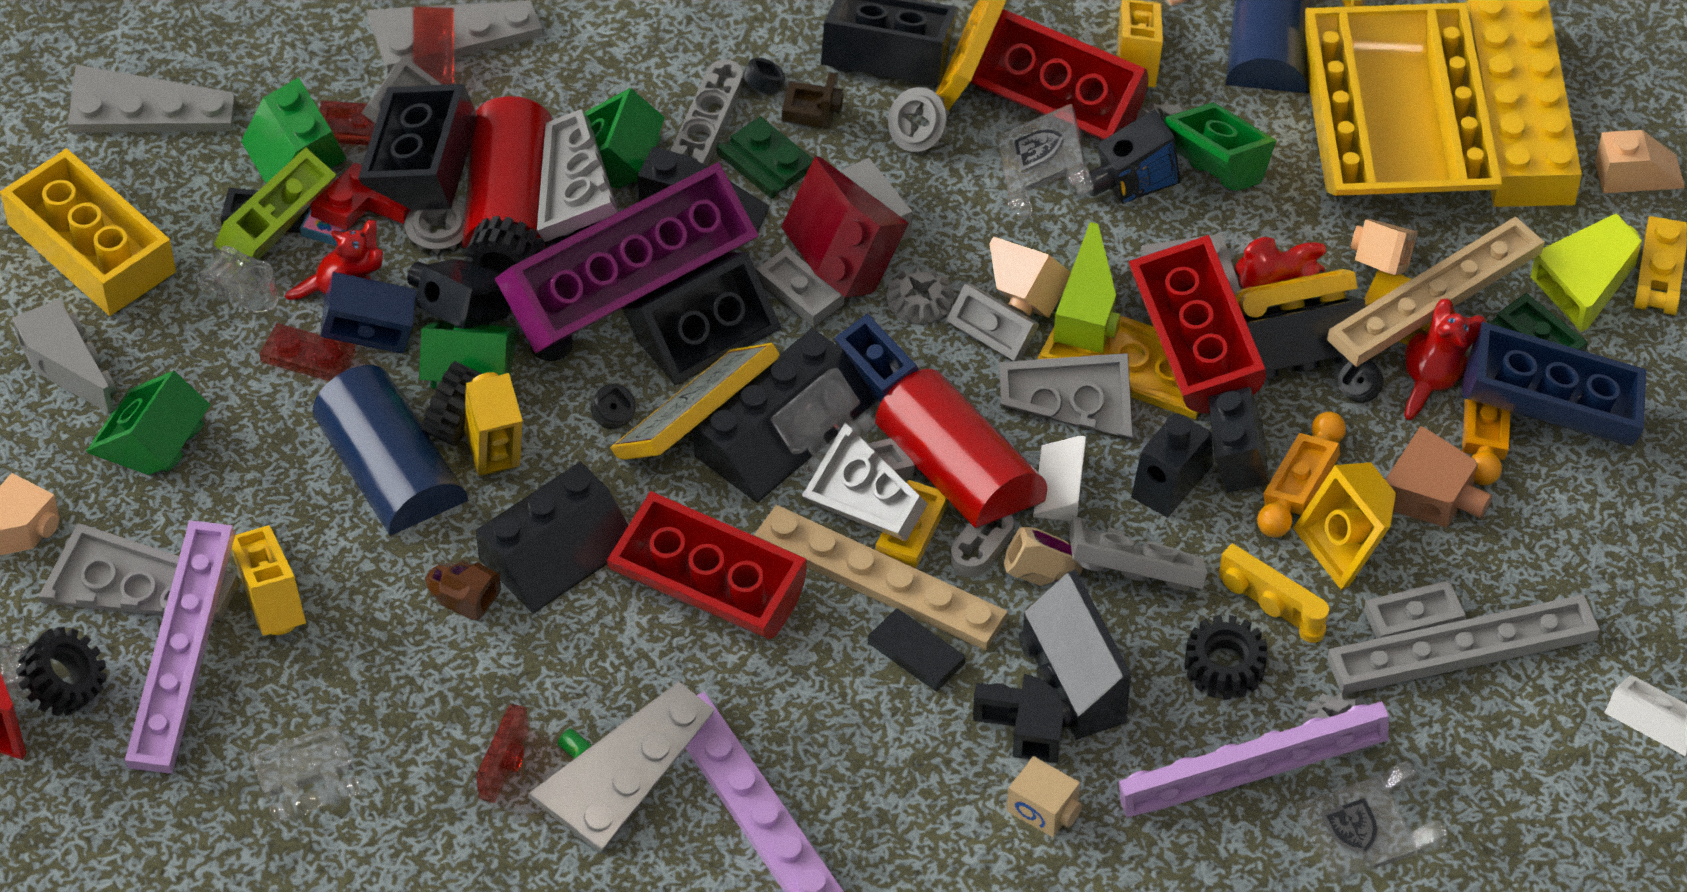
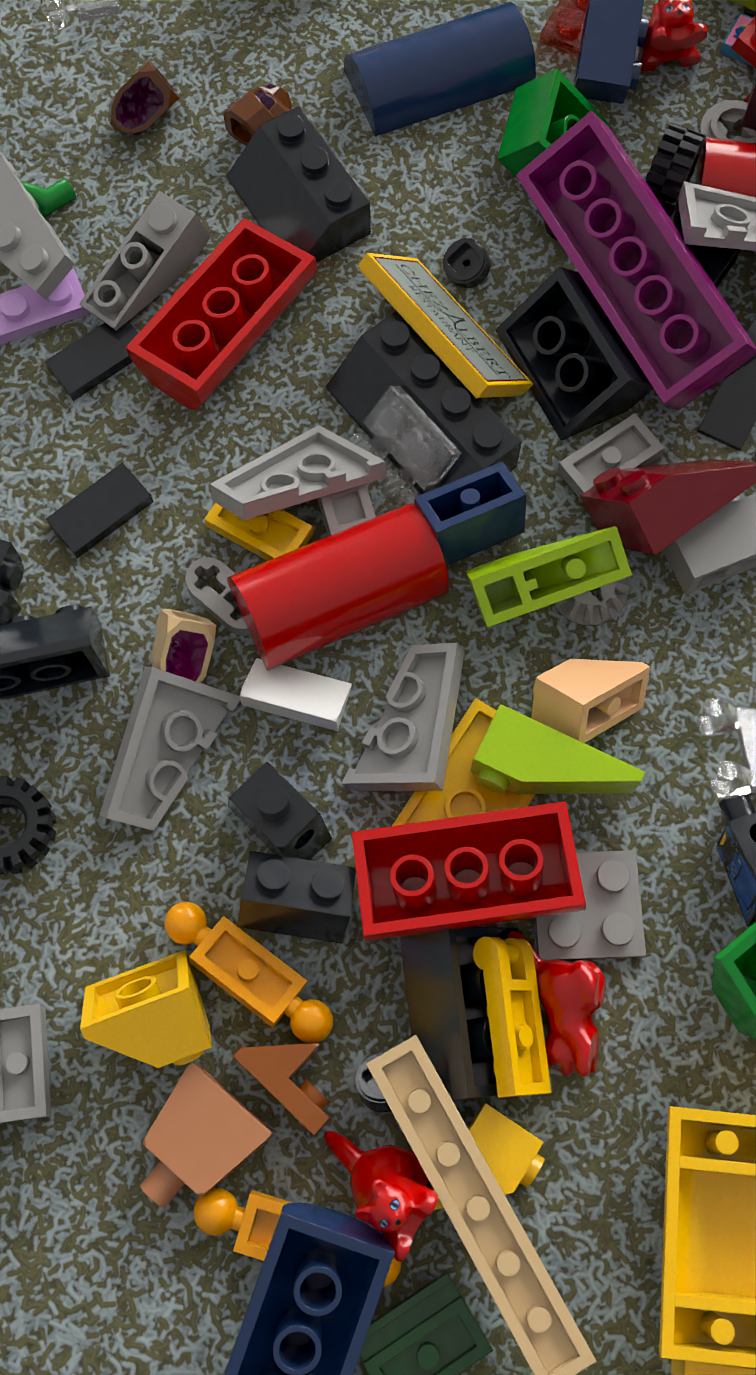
camera: 100 degrees right, 20 degrees up
(447, 409) = (469, 104): black tyre -> none
(459, 292) = (633, 115): black torso -> none
(461, 682) = (141, 101): none -> rock
(493, 423) = (415, 114): yellow brick -> none
(503, 754) = (53, 127): clear red plate -> none
(655, 643) = (147, 261): none -> light grey slope
(756, 680) = (92, 359): none -> black tile
(885, 578) = (186, 502): tan plate -> none
(932, 308) = (547, 574): none -> lime slope
(992, 322) = (530, 653): light grey plate -> none
(1274, 592) = (75, 898): yellow plate -> none
(1375, 438) = (275, 1070): none -> dark orange slope
(1384, 246) = (572, 1156): light nougat slope -> none

